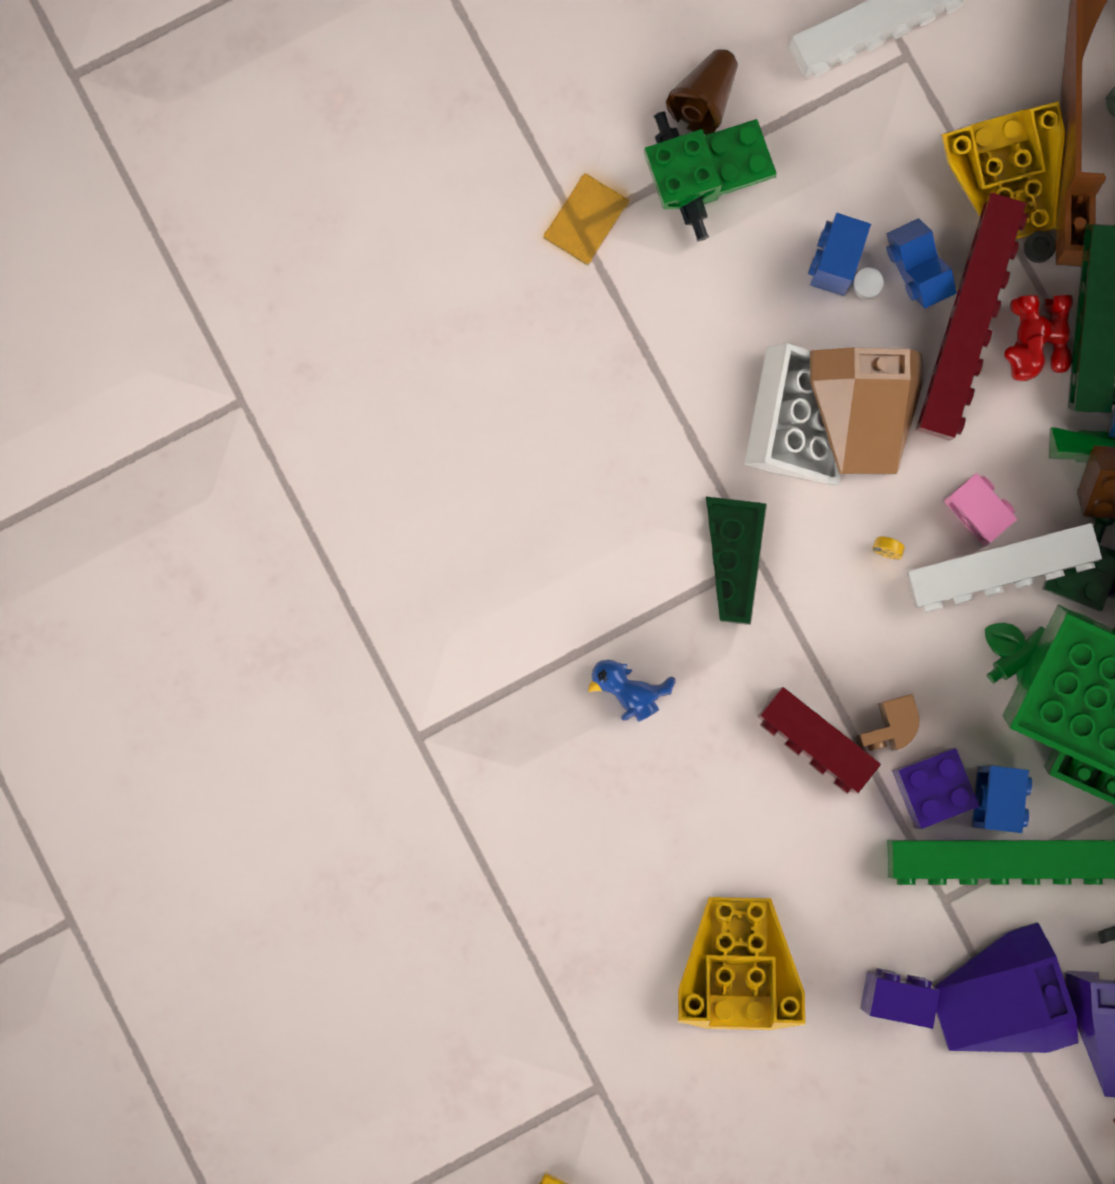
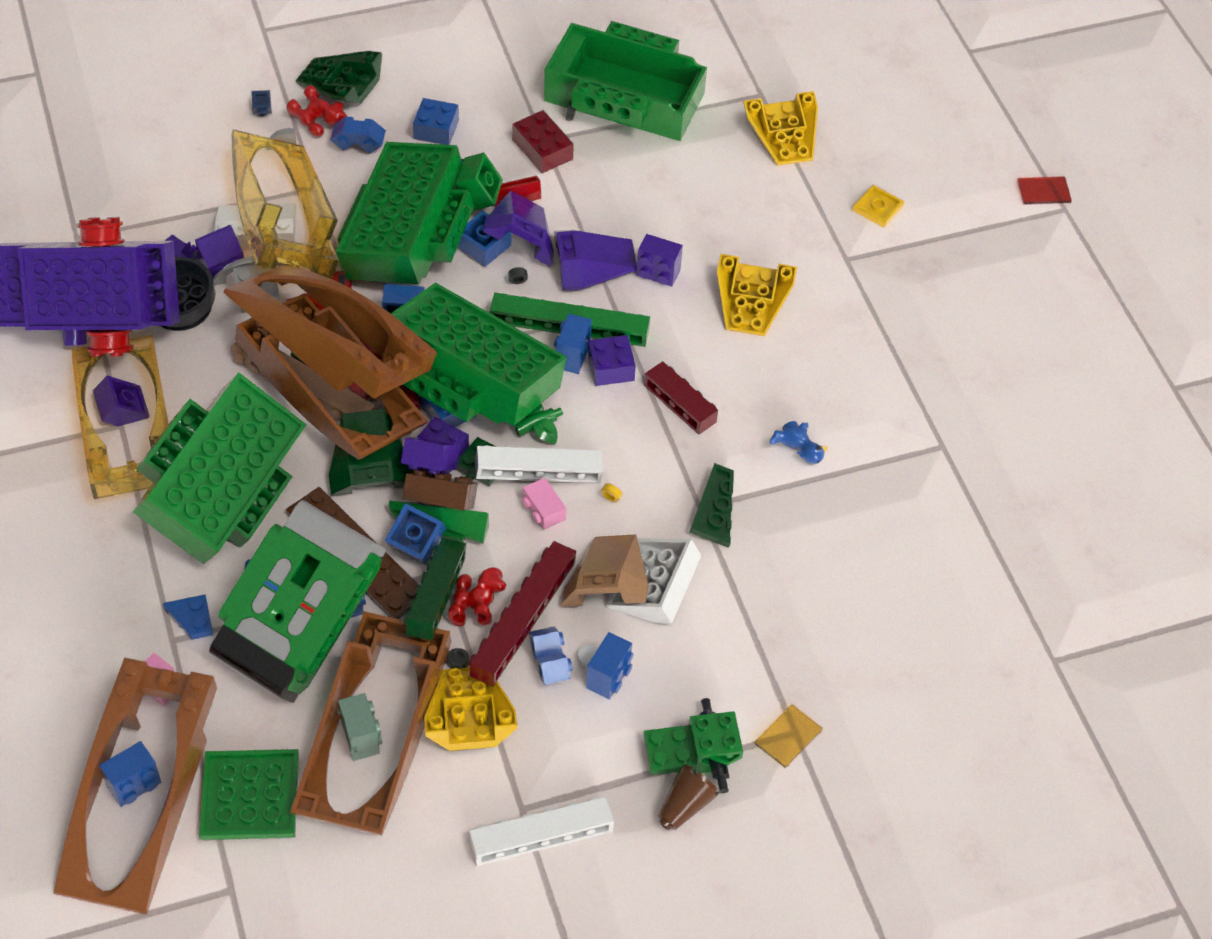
camera: 175 degrees left, 30 degrees down
(900, 724) = (629, 395): medium nougat brick -> none

